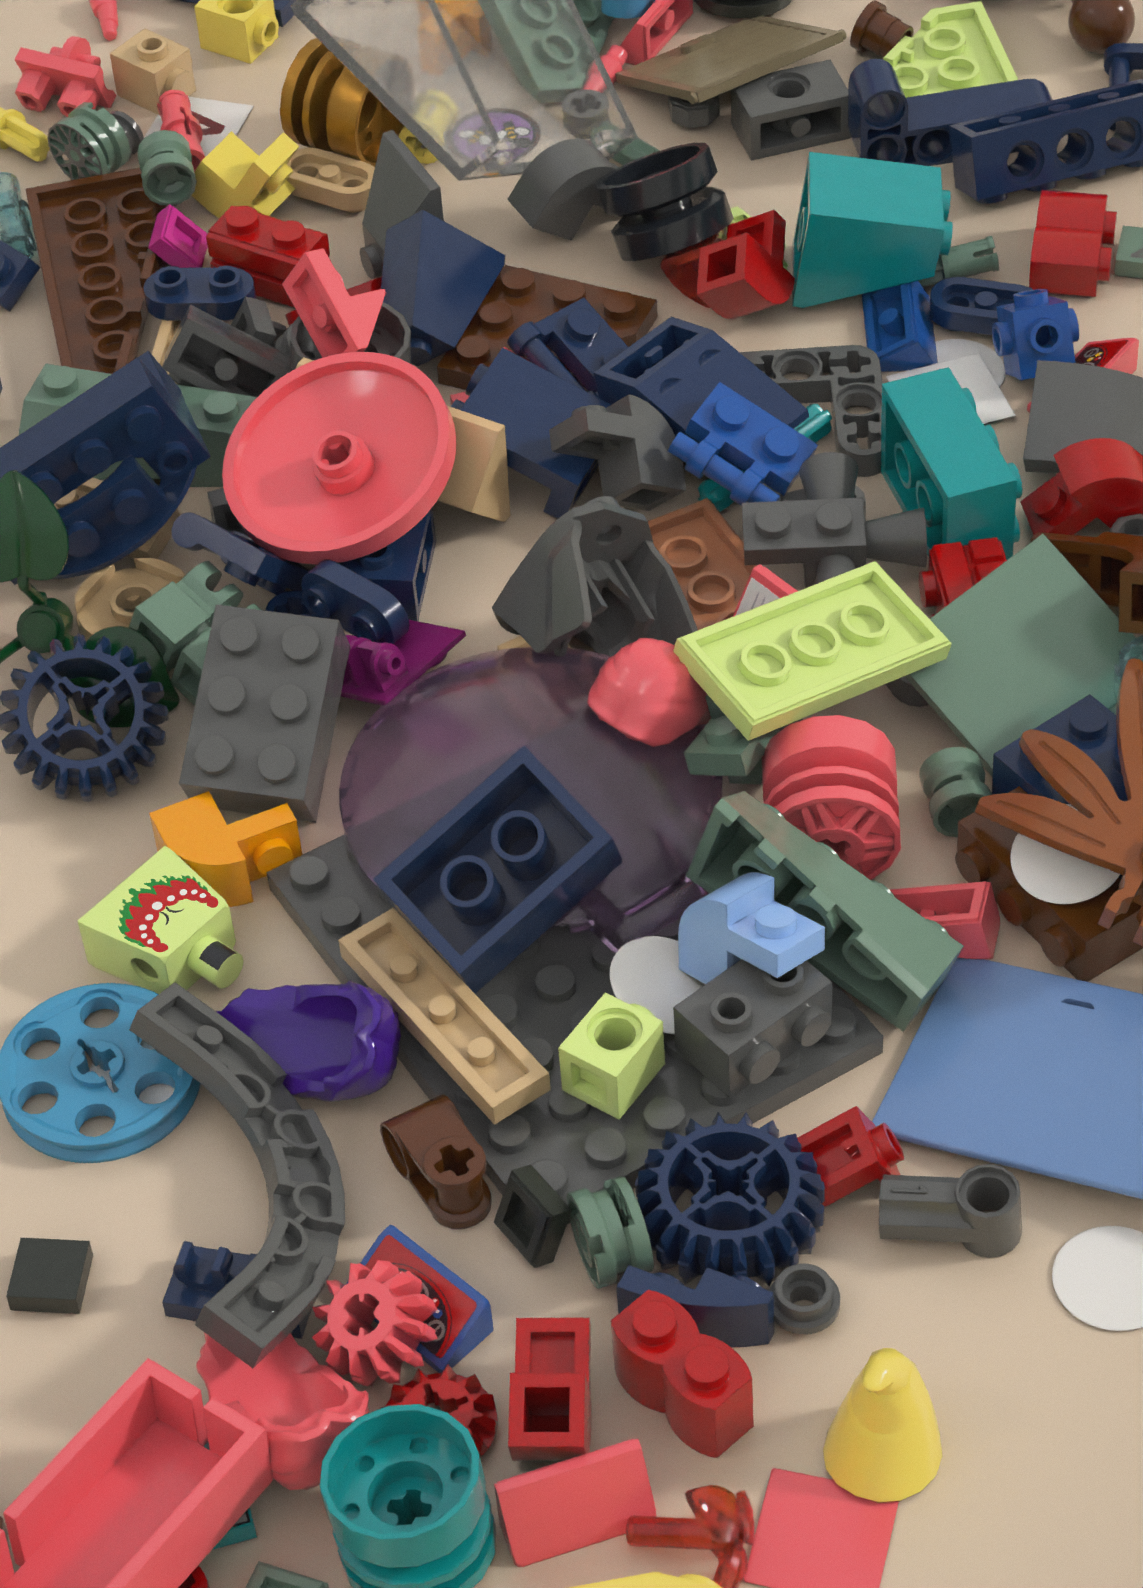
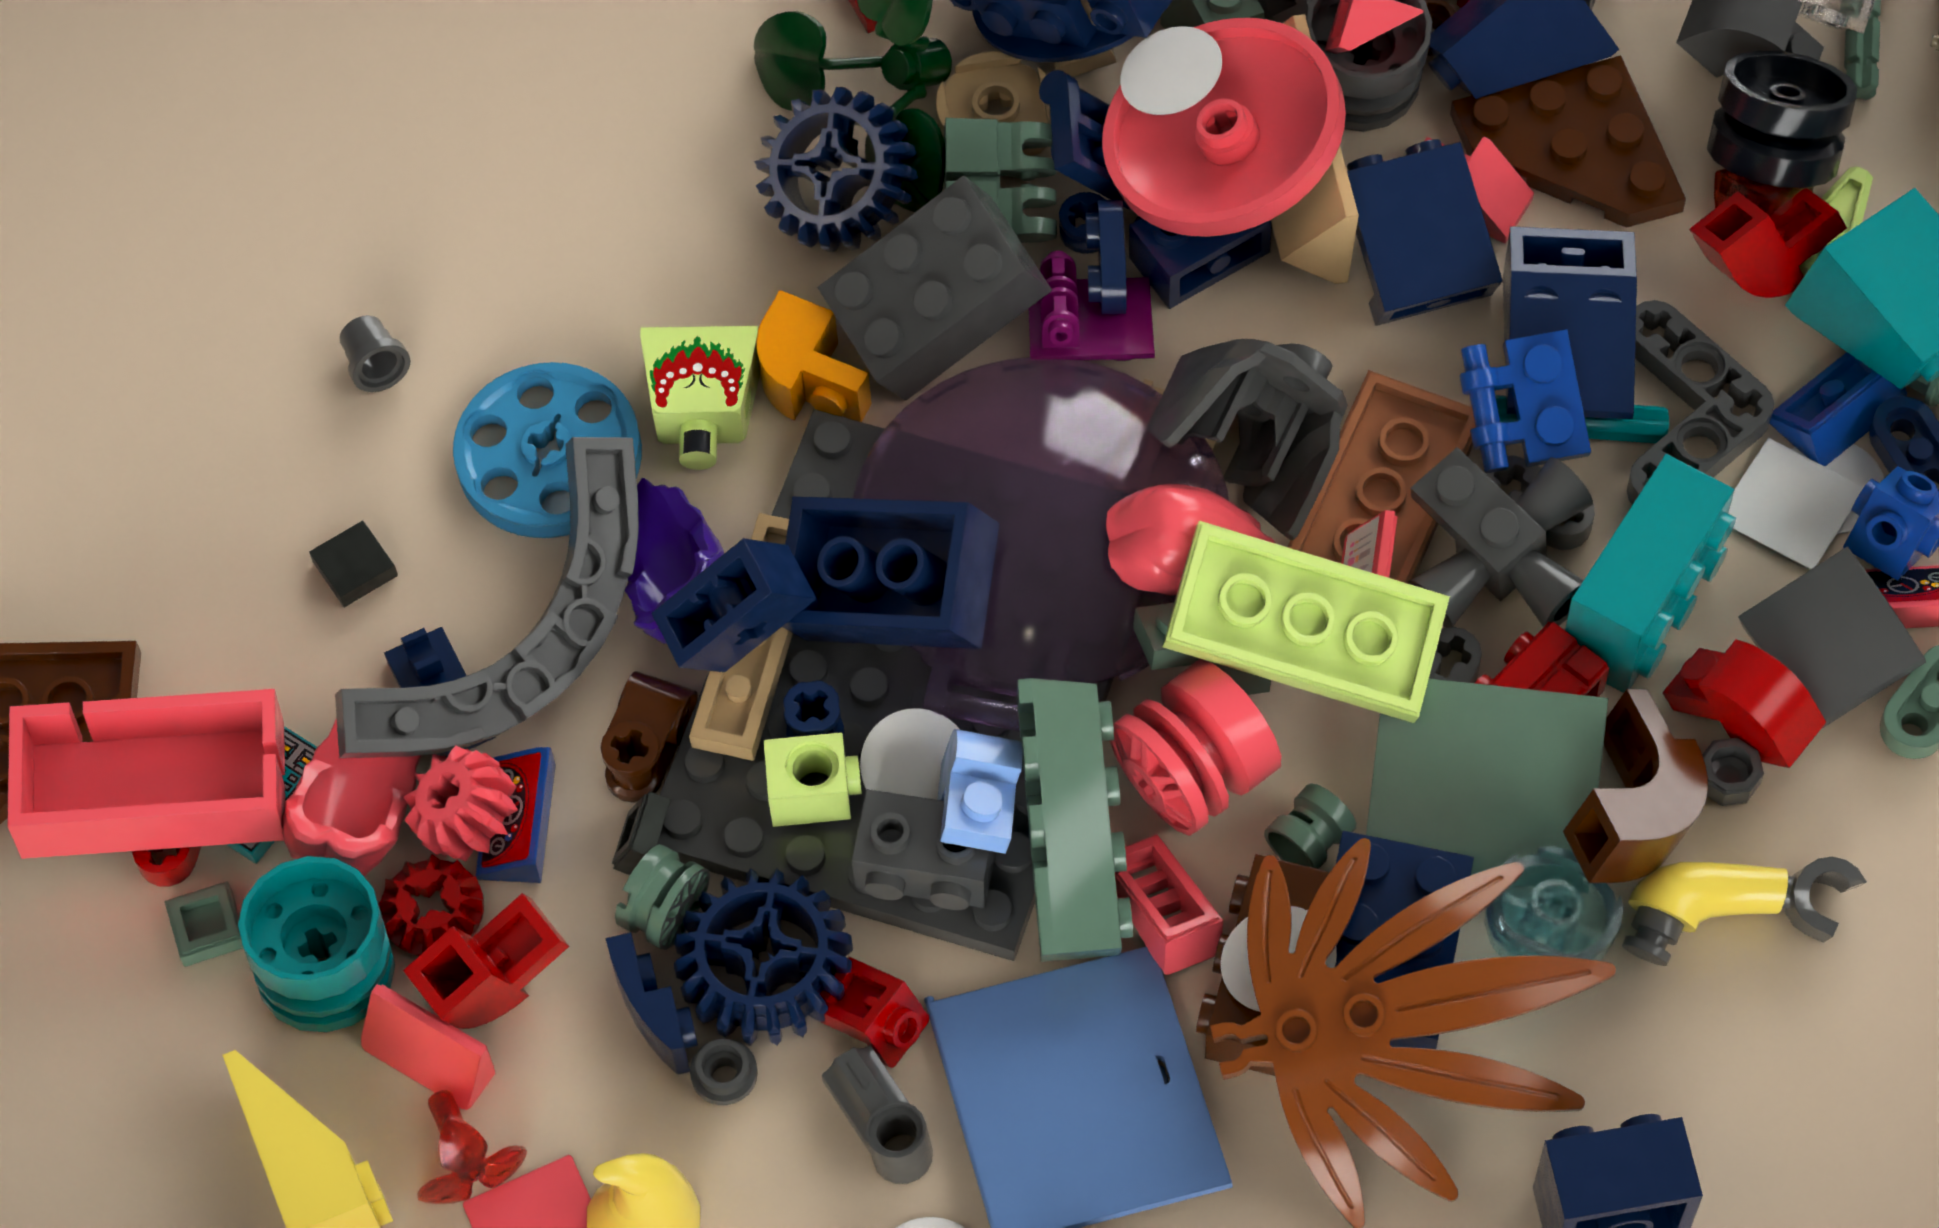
camera: 50 degrees right, 15 degrees up
(256, 458) = (1171, 70): none -> white sticker
(432, 971) = (733, 605): none -> dark blue brick
(559, 1007) = (816, 702): none -> dark blue bush
(576, 337) = (1565, 190): dark blue plate -> none
(630, 448) = (1458, 315): dark grey brick -> none
(682, 1373) = (577, 1042): red brick -> none

